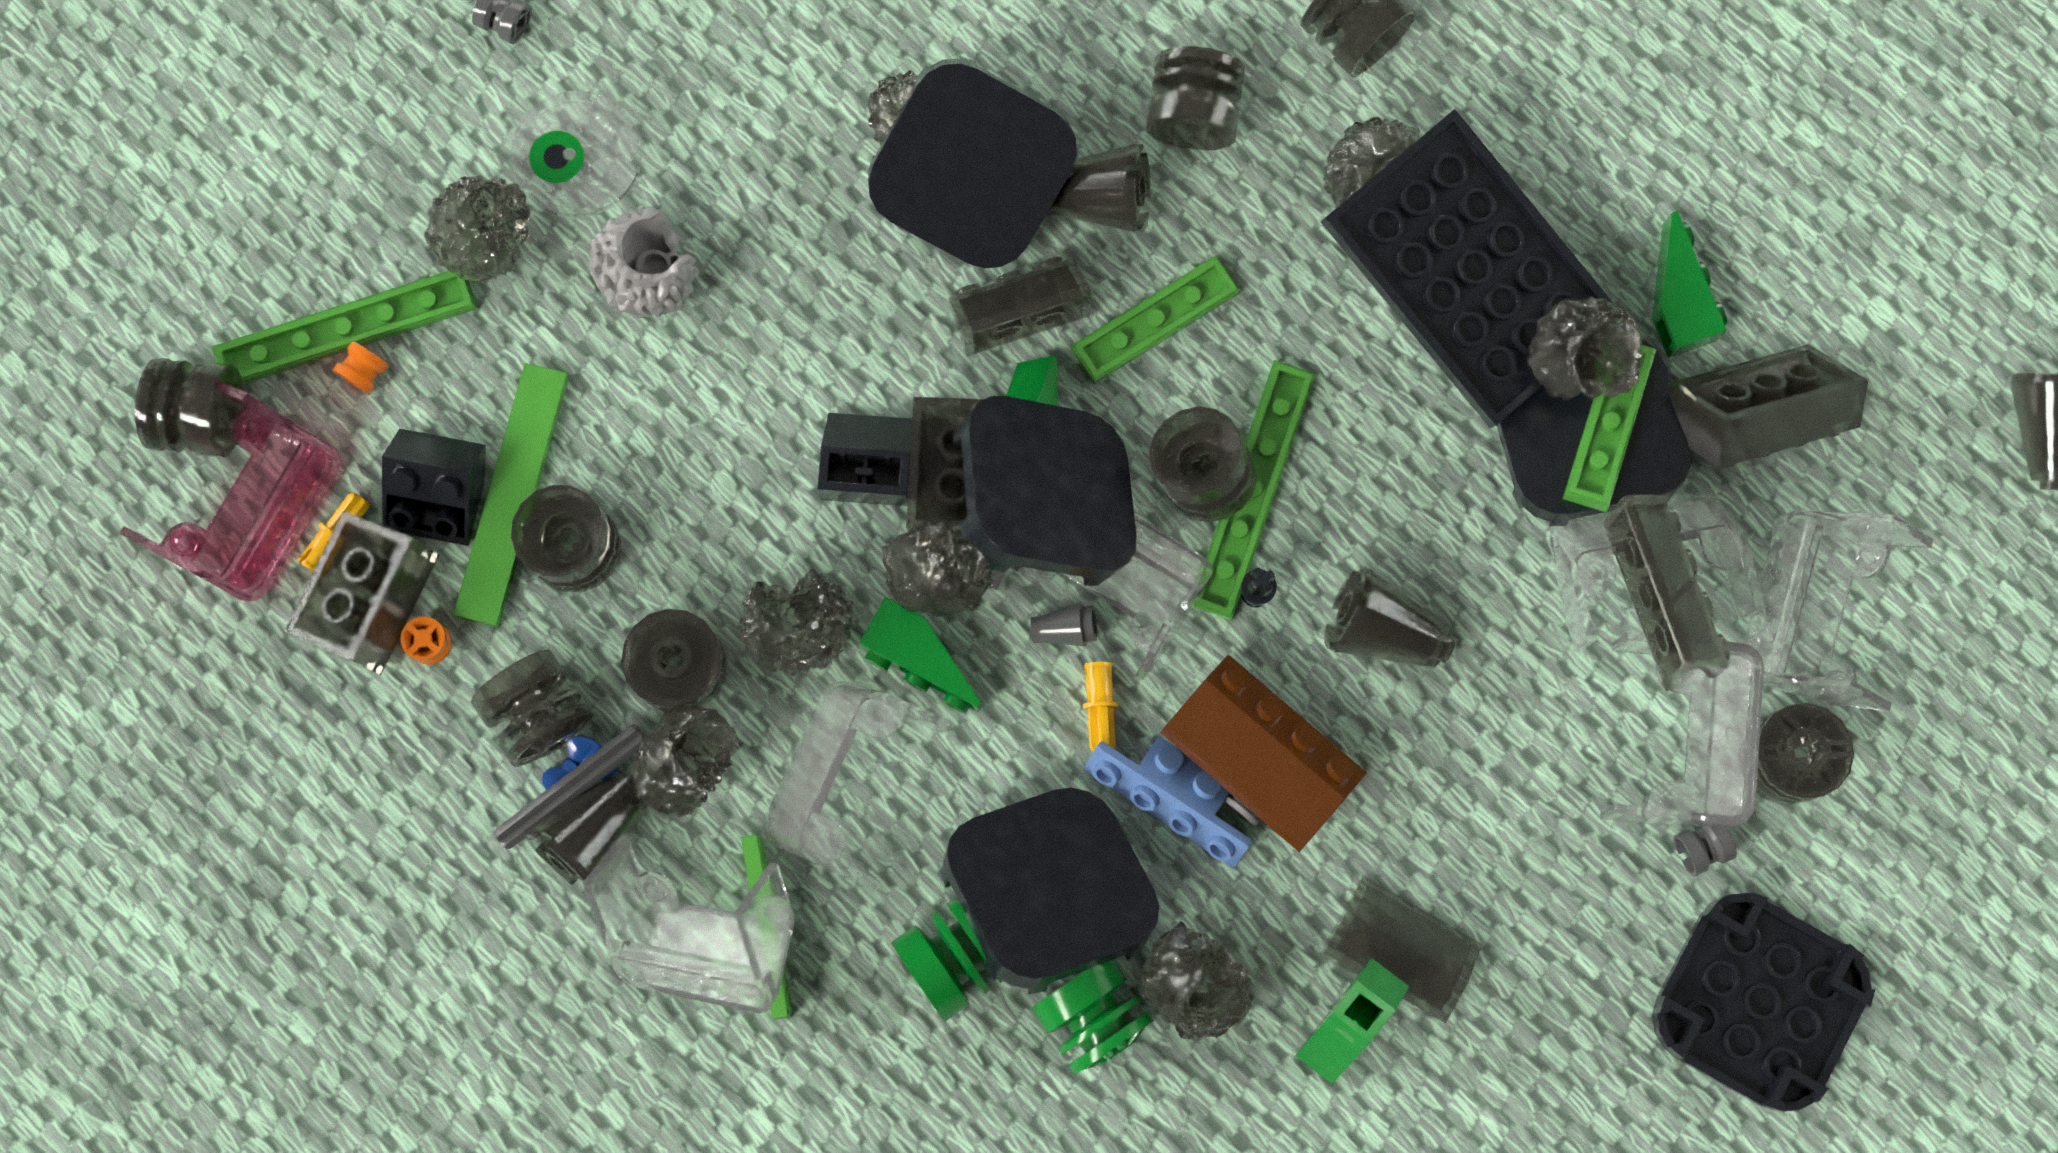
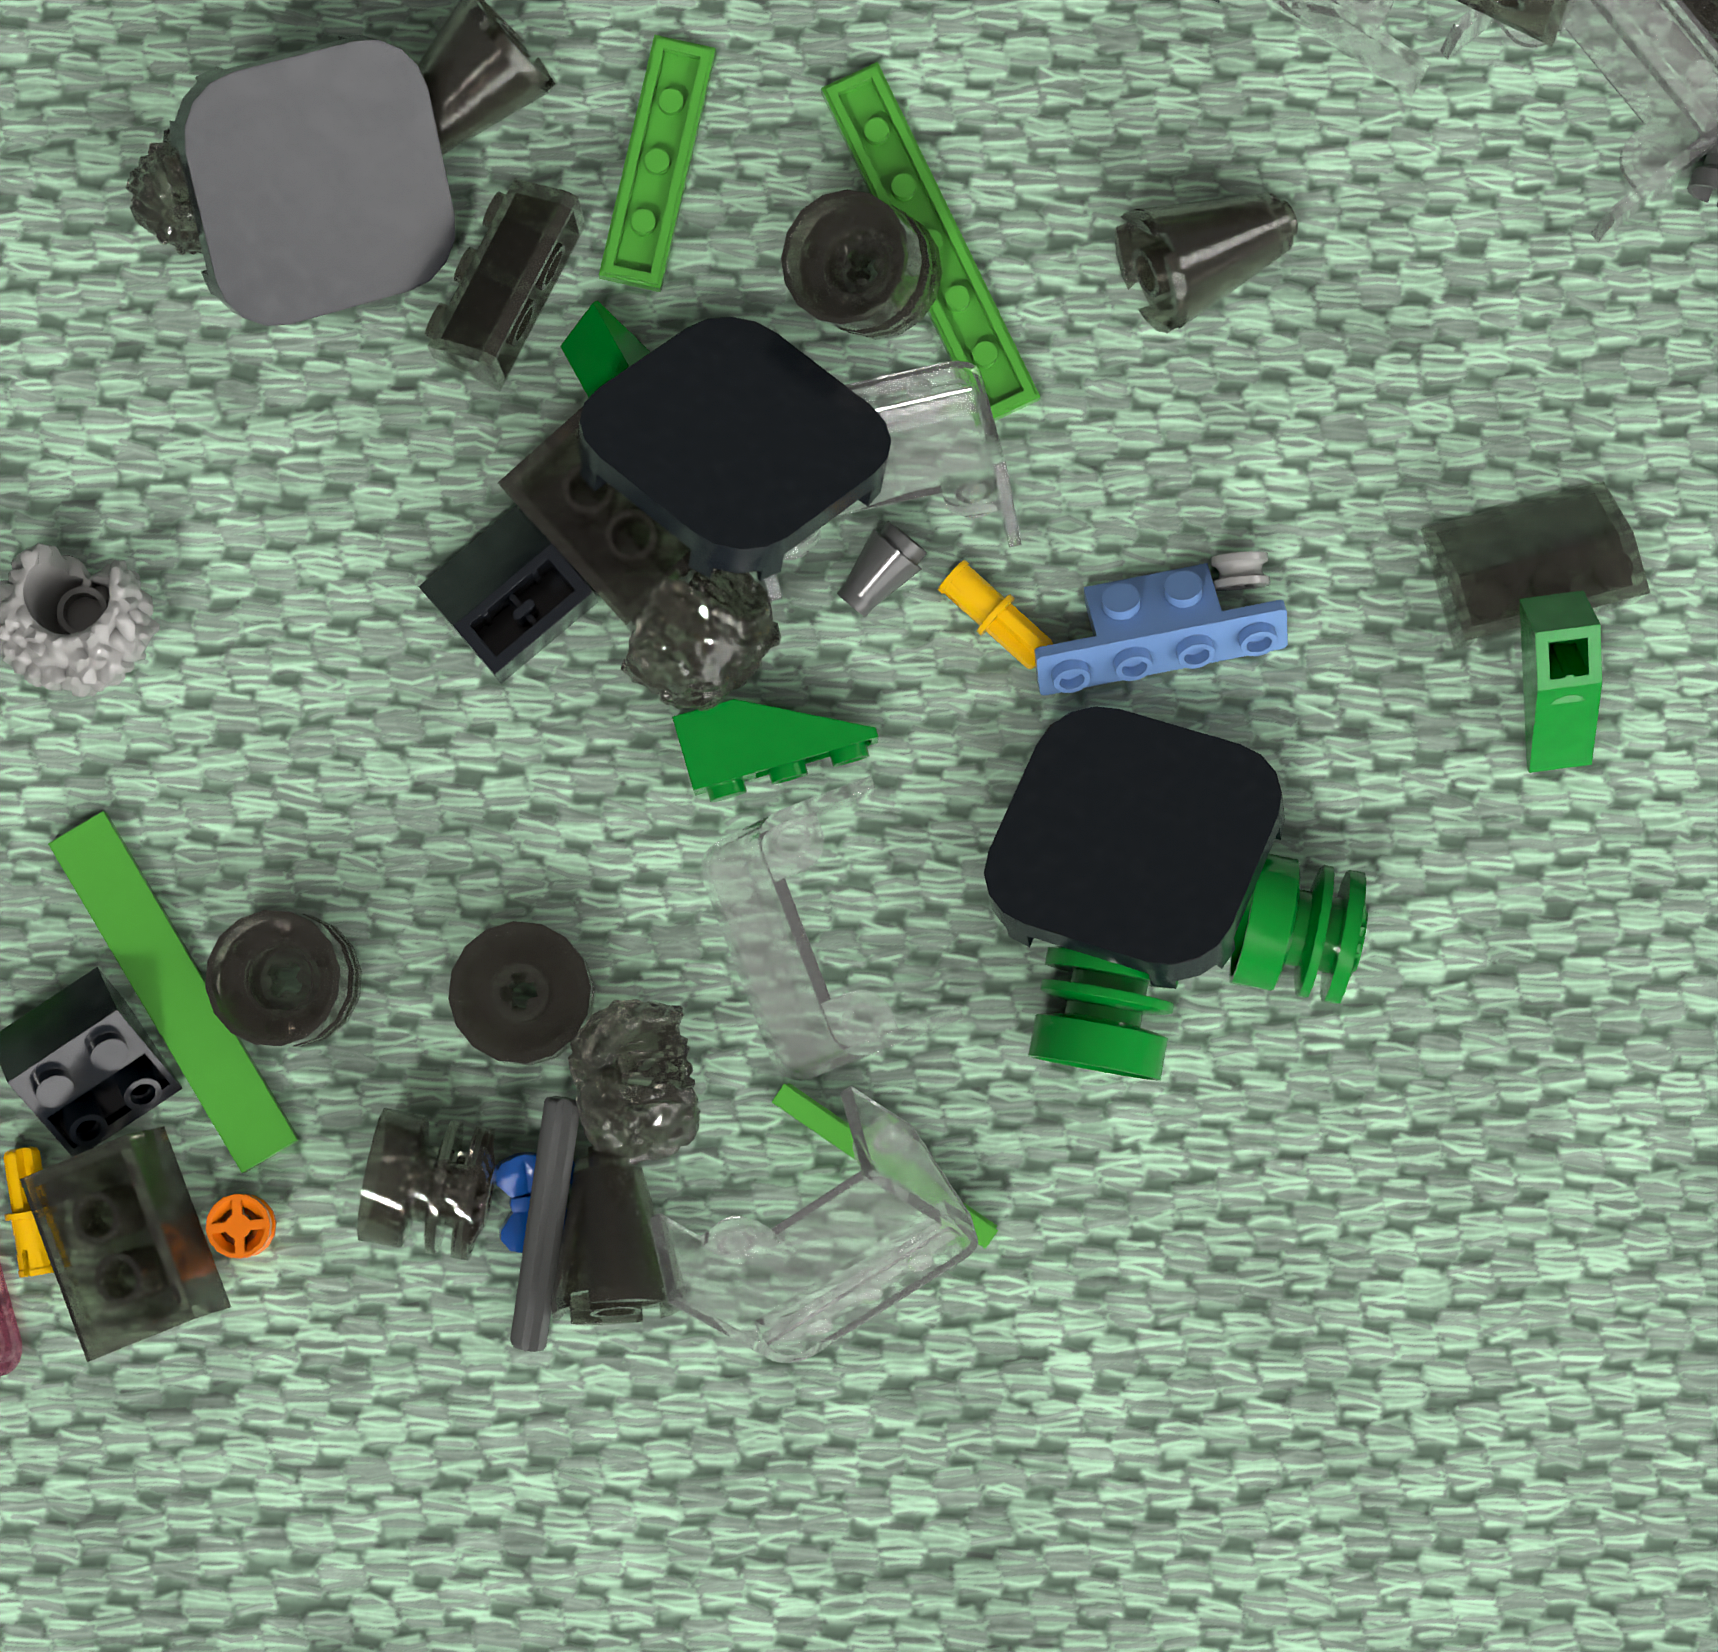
camera: 50 degrees left, 5 degrees up
(798, 626) = (614, 832): clear smoke hair -> none
(1196, 984) = (1370, 796): clear smoke hair -> none
(1258, 587) = (1039, 338): black axle -> none
(1263, 753) = (1209, 500): reddish brown slope -> none

